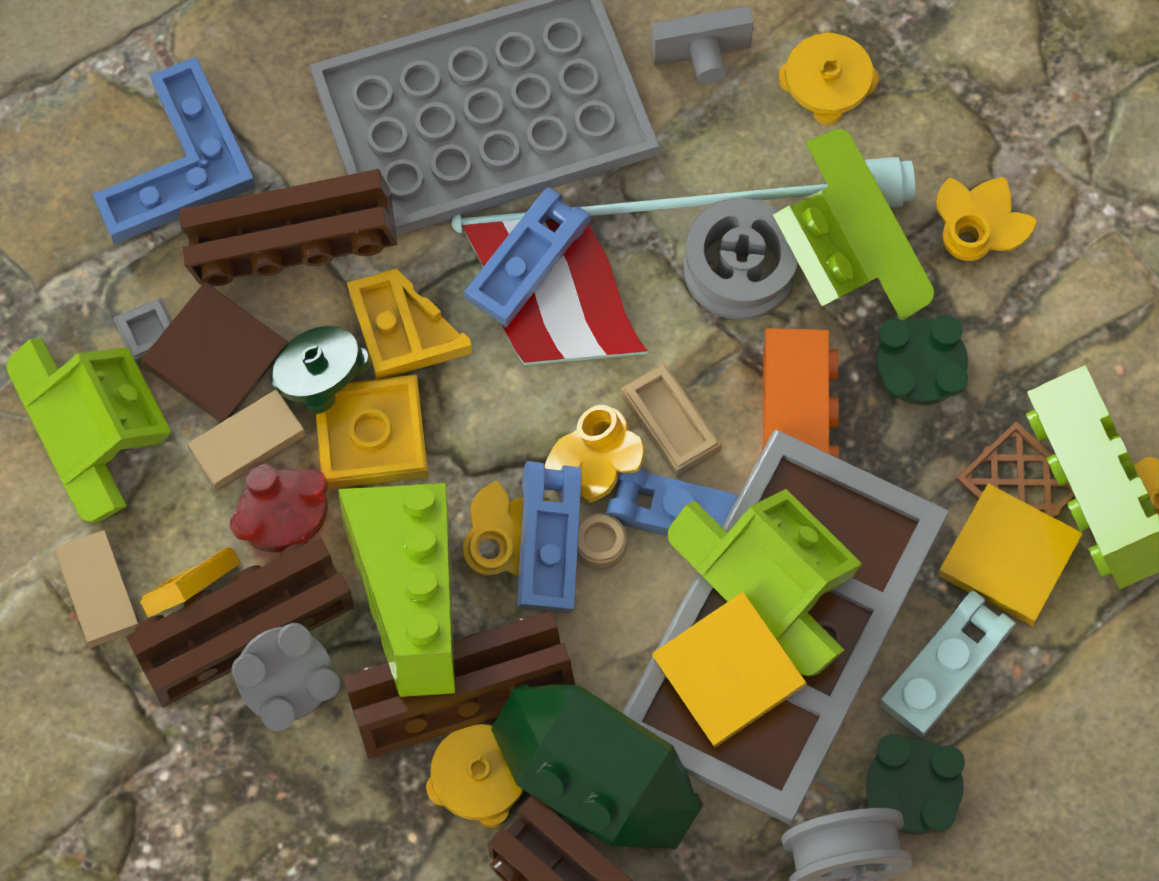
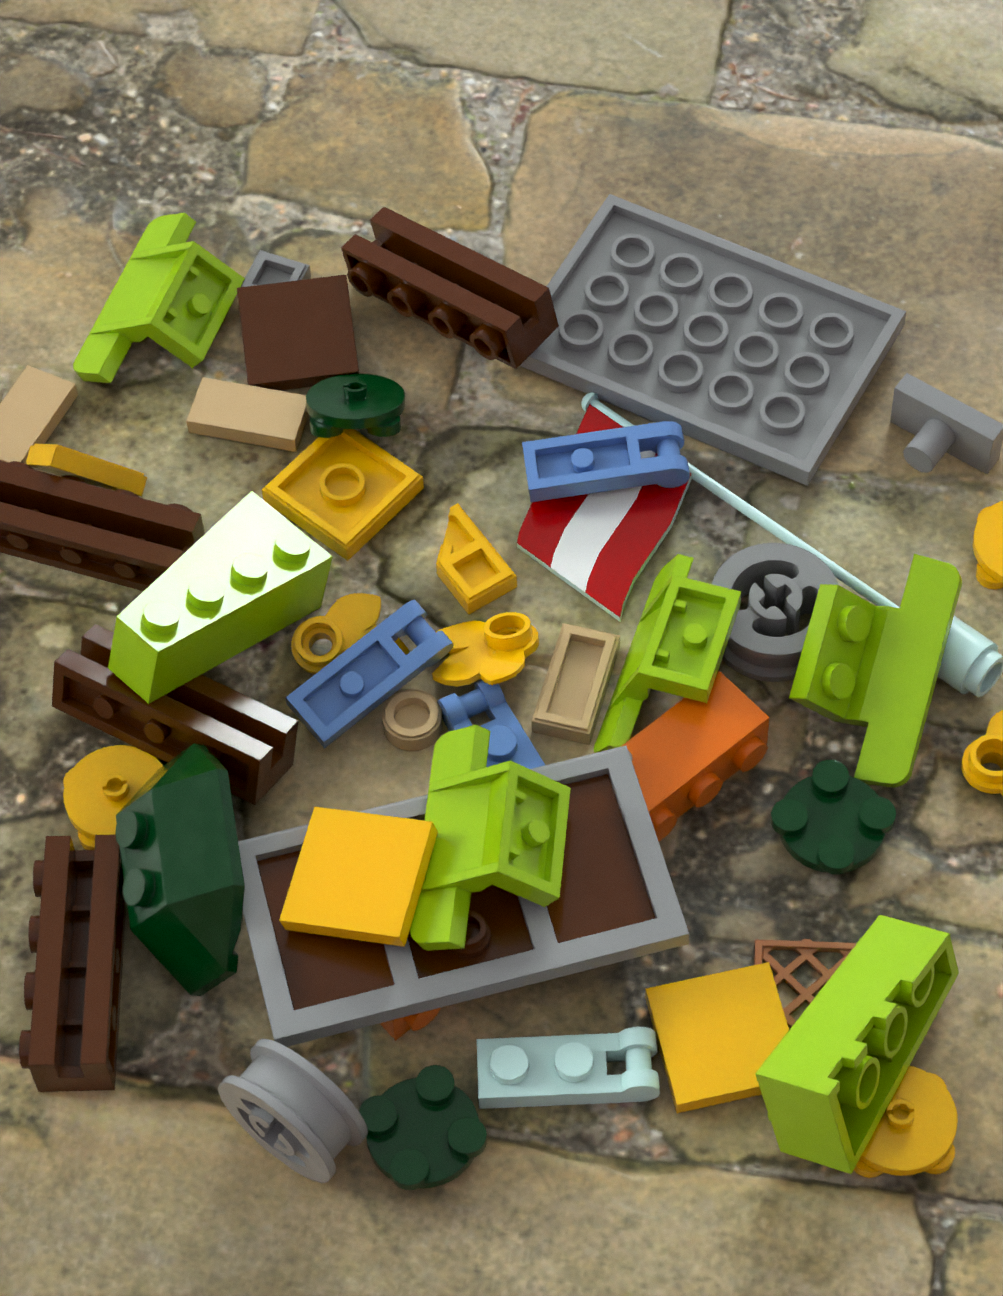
camera: 50 degrees right, 10 degrees down
(207, 173) = (452, 208): medium blue plate -> none
(280, 507) = (208, 478): clear red piece -> none
(284, 675) = (62, 588): light grey piece -> none
(401, 326) = (452, 432): yellow wing -> none
(512, 404) = (471, 564): none -> yellow tile
(715, 342) = (673, 647): none -> lime plate

